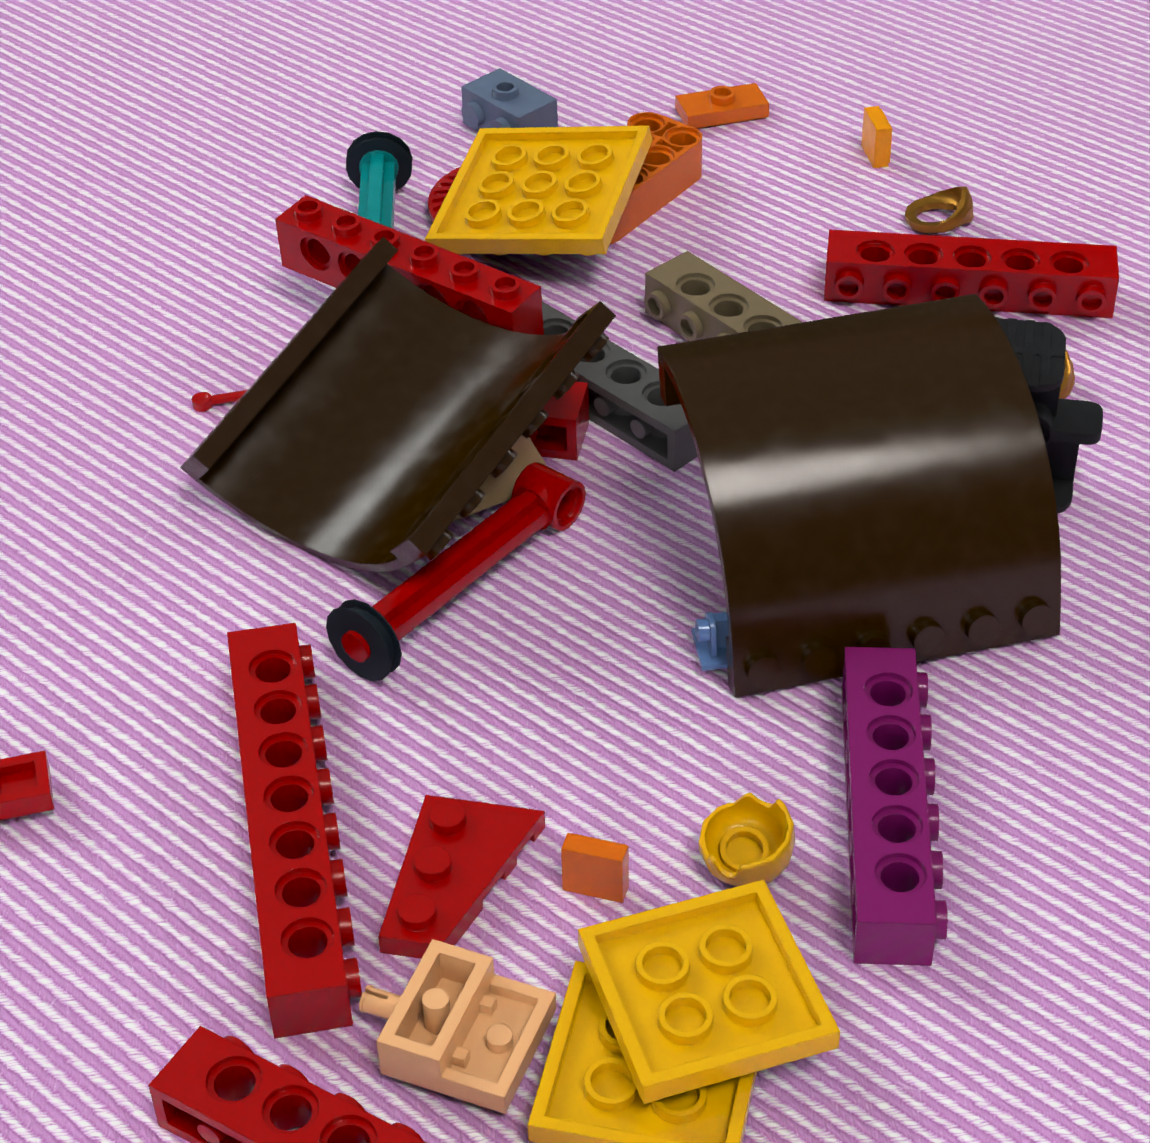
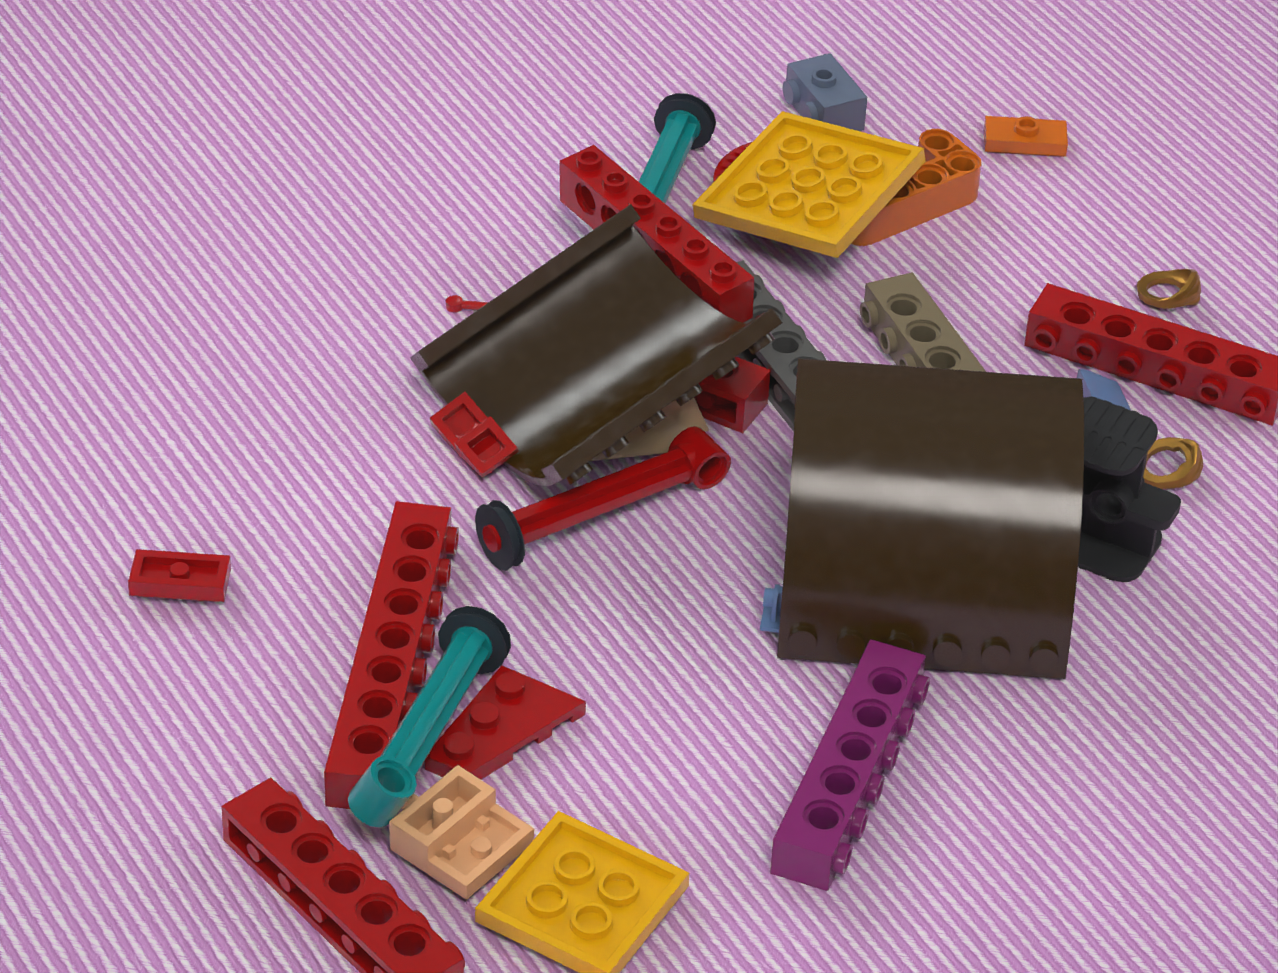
camera: 15 degrees right, 0 degrees up
(283, 537) = (473, 435): none -> red slope
(383, 779) = (472, 645): none -> teal piece
(595, 867) = (603, 751): orange tile -> none
(706, 990) = (639, 853): yellow plate -> none
(747, 840) = (726, 764): yellow hair -> none
(876, 136) = (1147, 202): light orange tile -> none

